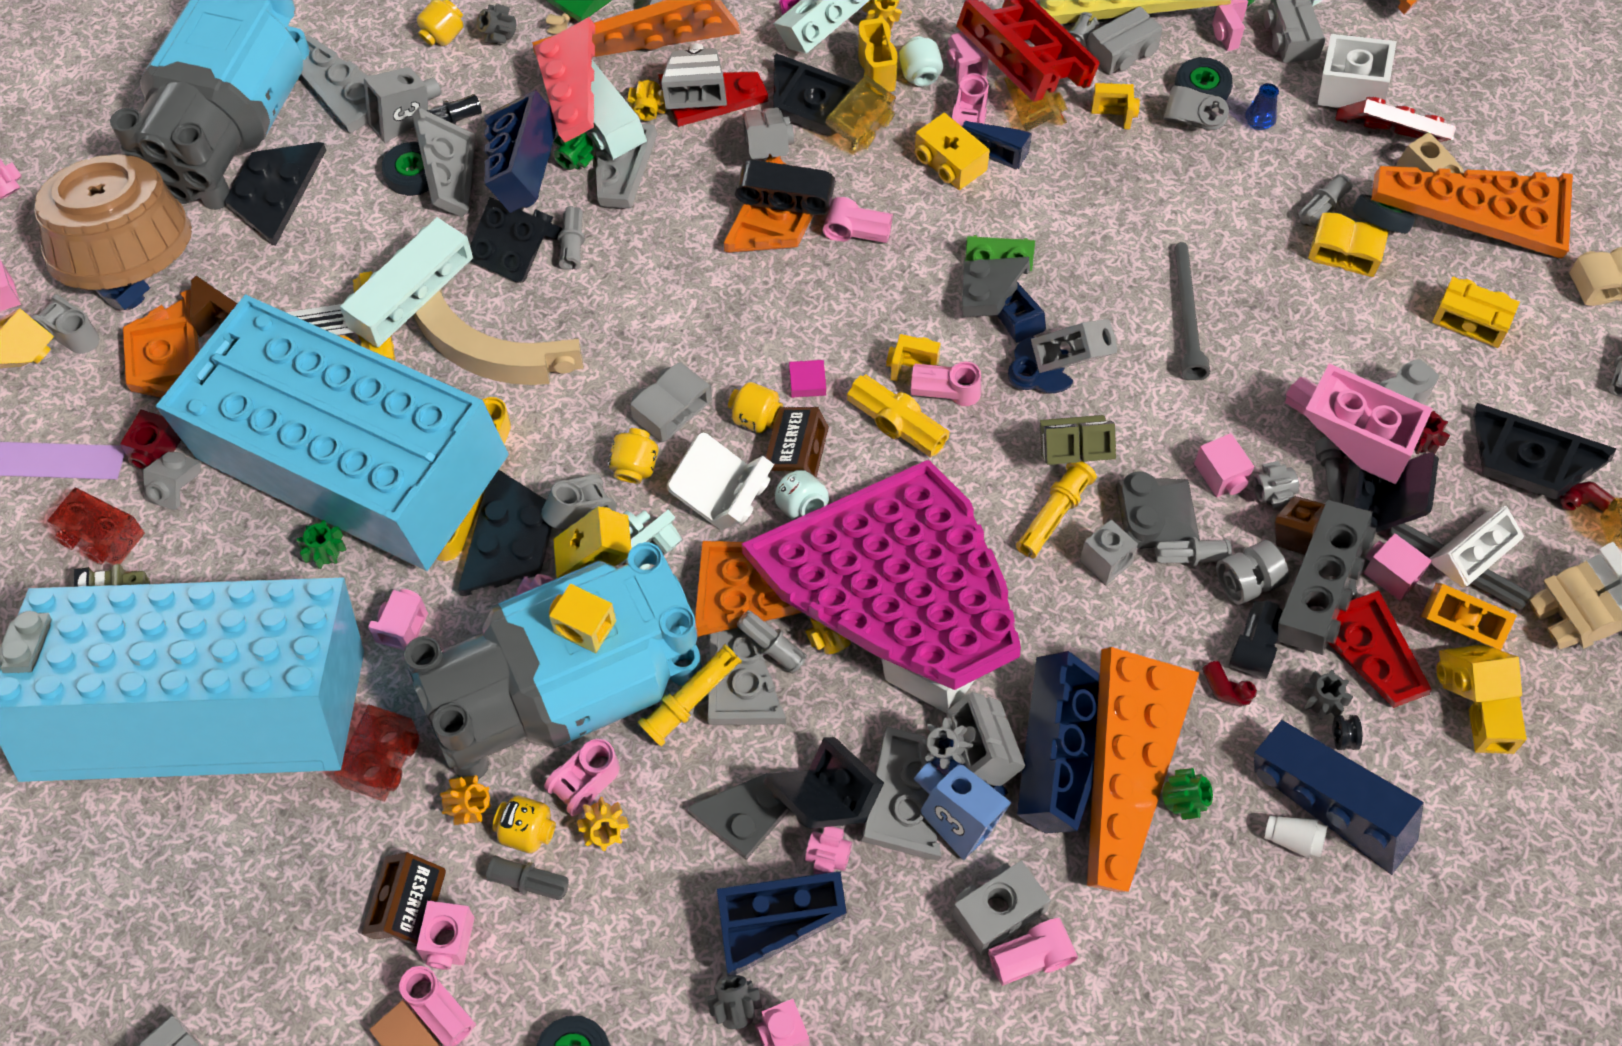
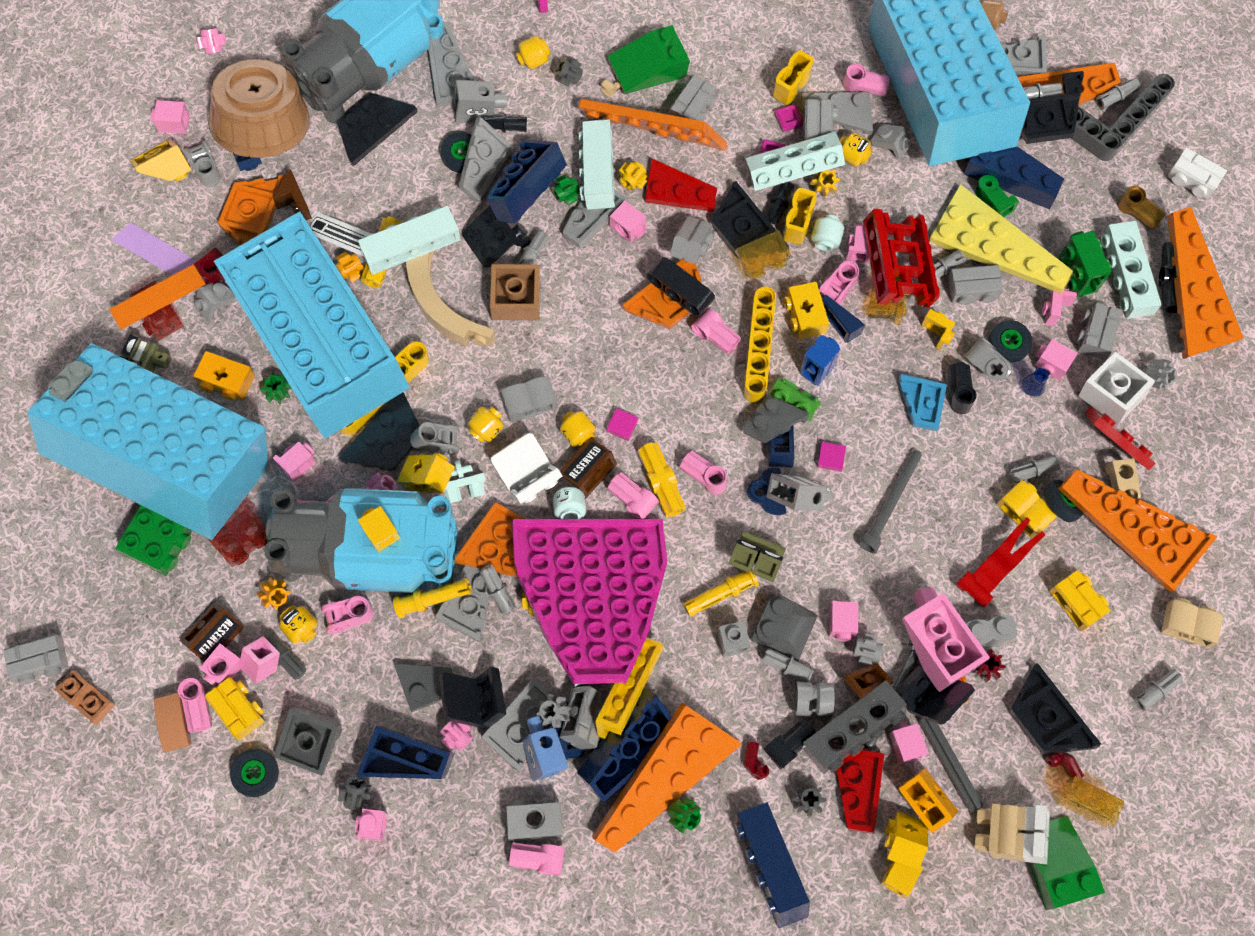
camera: 25 degrees right, 10 degrees up
(88, 506) = (157, 297): none -> orange sticker
(239, 558) = (214, 367): none -> light orange brick
(253, 817) = (154, 541): none -> green brick
(496, 894) = (259, 659): none -> bright pink brick
(496, 979) = (235, 708): none -> yellow brick
(567, 76) = (585, 139): coral wing -> none
(580, 286) = (515, 292): none -> medium nougat brick
(613, 822) = (340, 648): yellow gear -> none
(626, 967) = (308, 739): none -> dark grey slope
(673, 151) = (628, 222): none -> bright pink brick
(694, 79) = (668, 176): light grey torso -> none
(842, 54) = (780, 202): none -> black axle
(883, 453) = (637, 500): none -> bright pink piece
(912, 351) = (699, 443): yellow bracket -> none
(920, 213) = (761, 334): none -> yellow beam
(1004, 192) = (820, 359): none -> blue brick
(1025, 677) = (625, 695): none -> yellow fence
(1084, 296) = (831, 456): none -> dark pink tile
(1150, 186) = (923, 401): none -> dark azure wing
(1189, 156) = (961, 386): none -> black piece
(1267, 69) = (1055, 358): none -> bright pink brick
(1297, 834) = (735, 875): white cone -> none
(1347, 732) = (806, 830): black bush -> none
(1358, 320) = (997, 566): none -> red flag
(1395, 32) = (1162, 373): none -> light grey gear
(1478, 546) = (968, 758): white slope -> none

